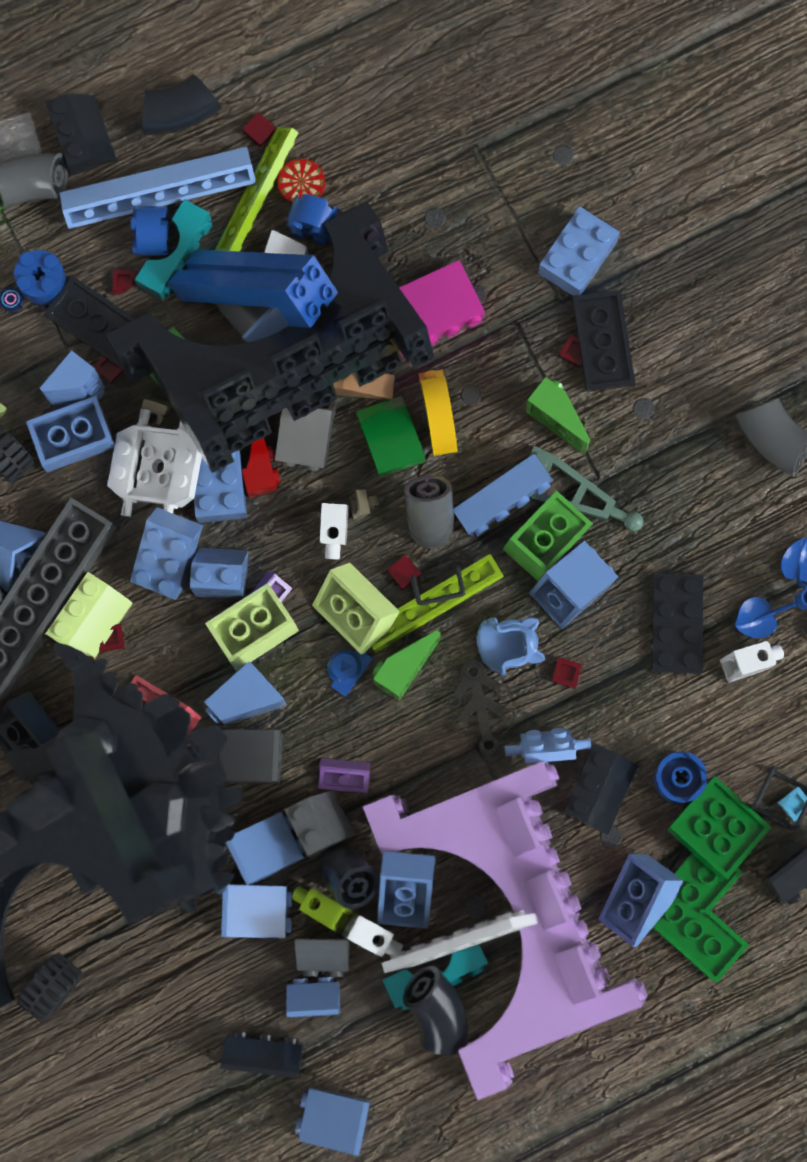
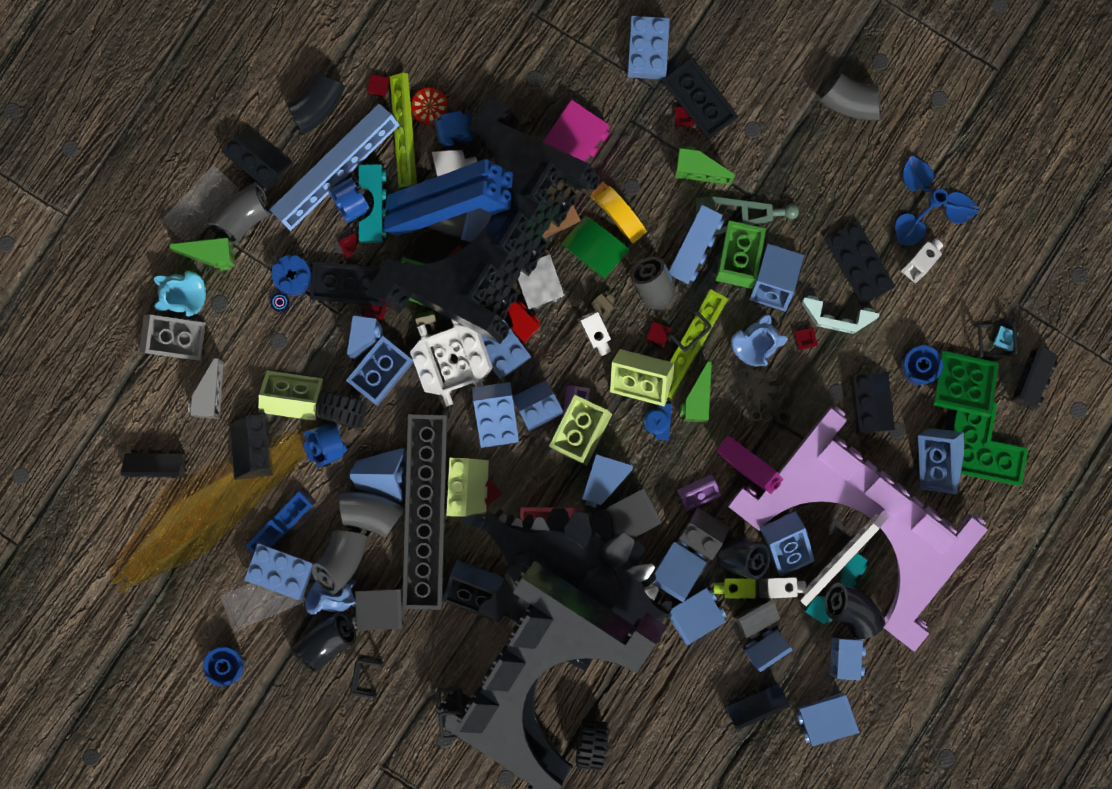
camera: 35 degrees left, 5 degrees up
(396, 1061) = (847, 658): none -> medium blue brick
(414, 773) = (749, 465): none -> magenta slope
(547, 746) = (823, 395): light blue plate -> none
(647, 688) = (814, 307): none -> light aqua slope

